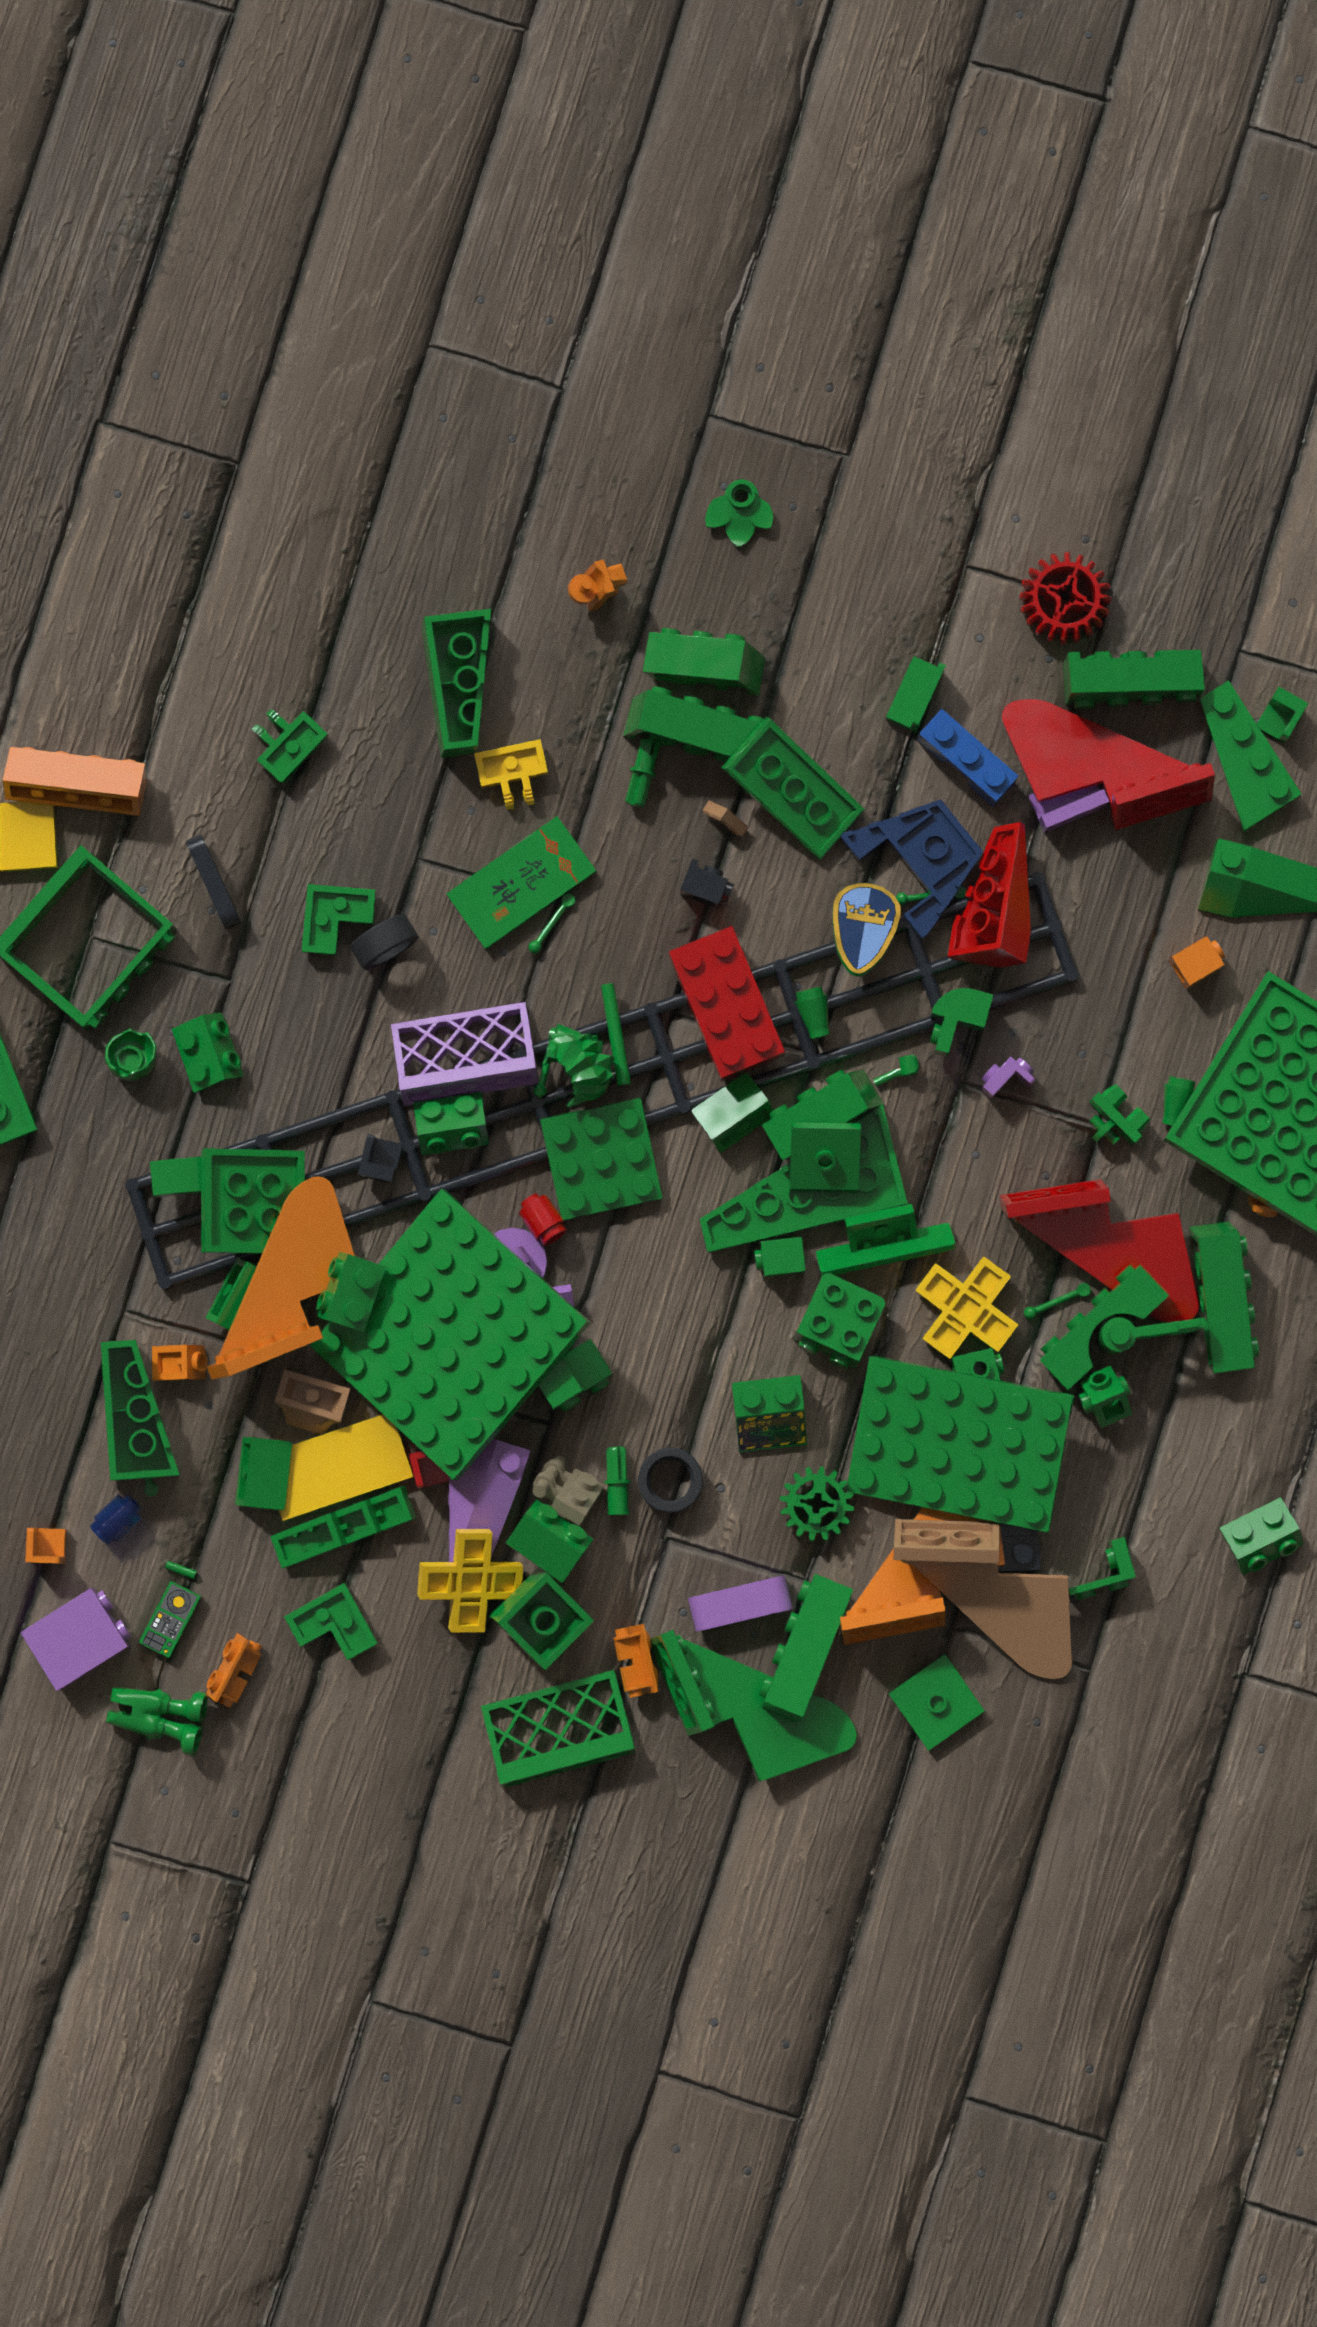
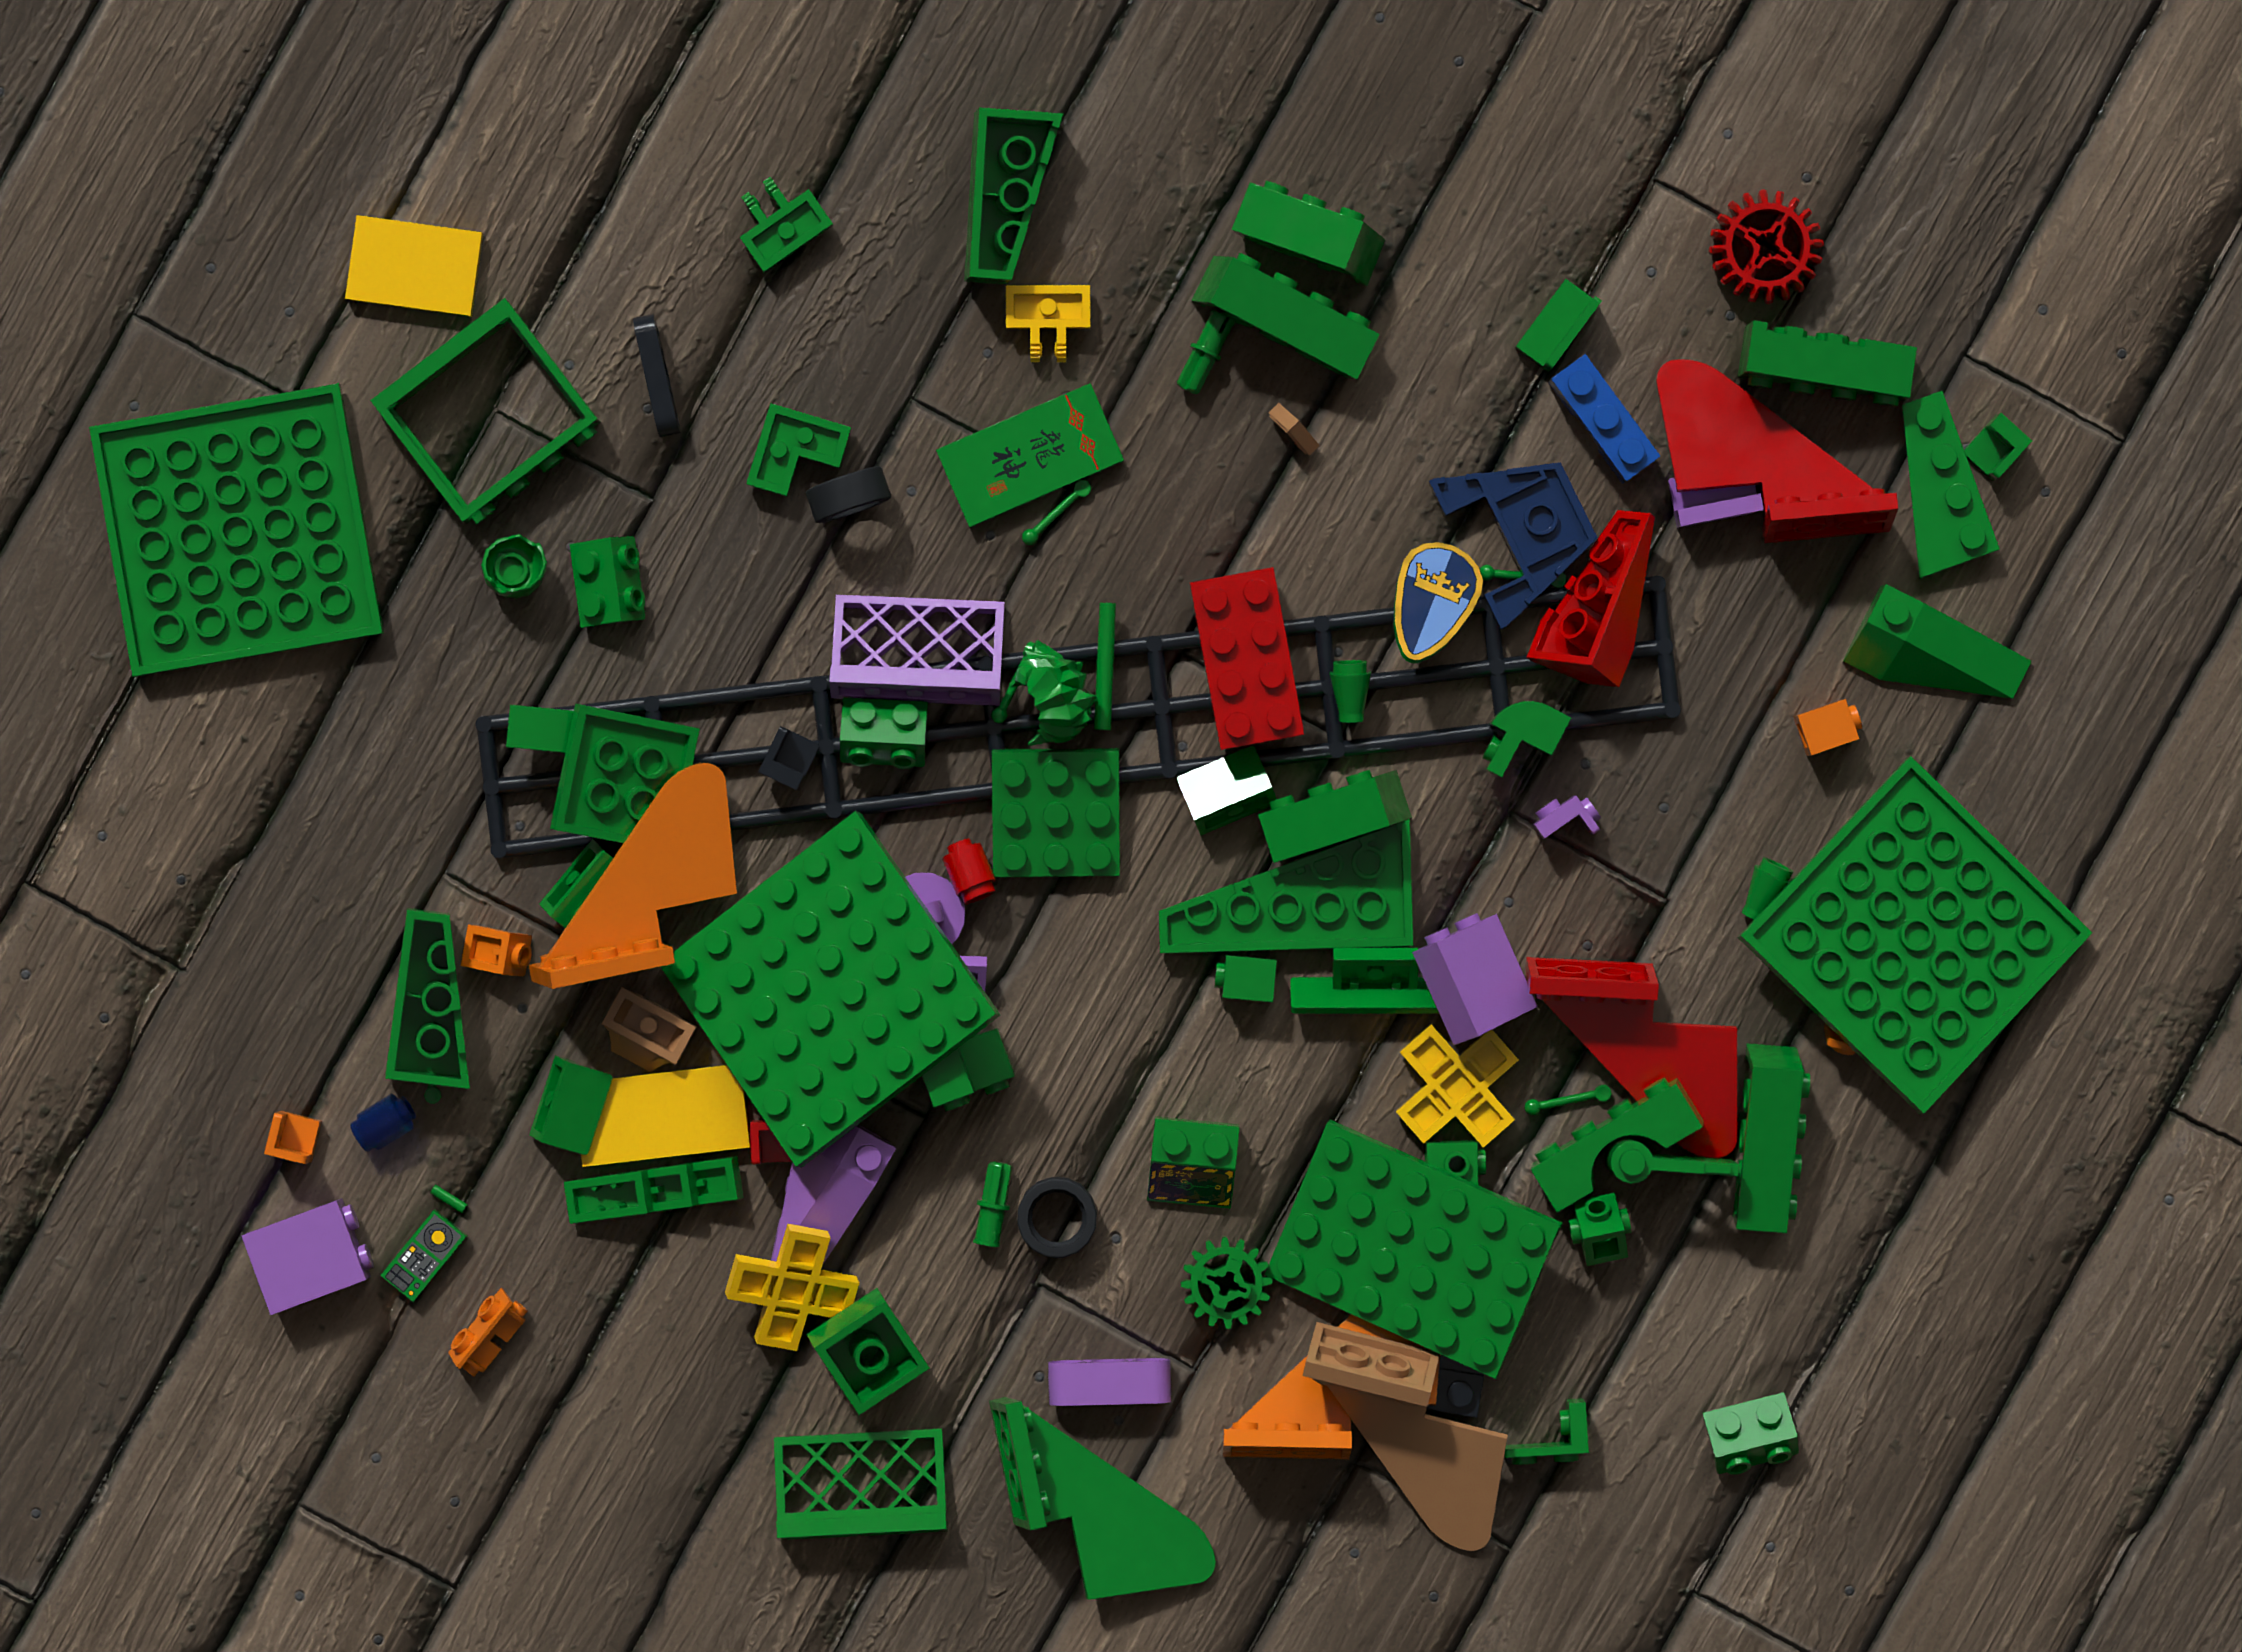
camera: 10 degrees right, 5 degrees up
(74, 781) = (513, 216): orange brick -> none
(148, 1719) = (373, 1368): green piece -> none
(336, 1613) = (625, 1291): green plate -> none
(350, 1291) = (719, 912): green bracket -> none
(549, 1540) = (896, 1263): green slope -> none
(570, 1493) = (942, 1211): dark tan plate -> none
(597, 584) = (1198, 110): orange hips -> none
(642, 1675) = (973, 1405): orange hinge -> none
(706, 885) = (1254, 507): black brick -> none
(739, 517) = (1389, 61): green plate -> none
(793, 788) = (1383, 411): green tile -> none
(806, 1648) = (1177, 1453): green brick -> none
(825, 1156) = (1326, 869): green plate -> none
(839, 1321) = (1301, 1070): green bracket -> none
(908, 1067) = (1450, 778): green hand -> none
(936, 1702) = (1318, 1548): green plate -> none
(961, 1217) = (1474, 977): none -> medium lavender brick
(1106, 1106) = (1700, 910): green hips -> none

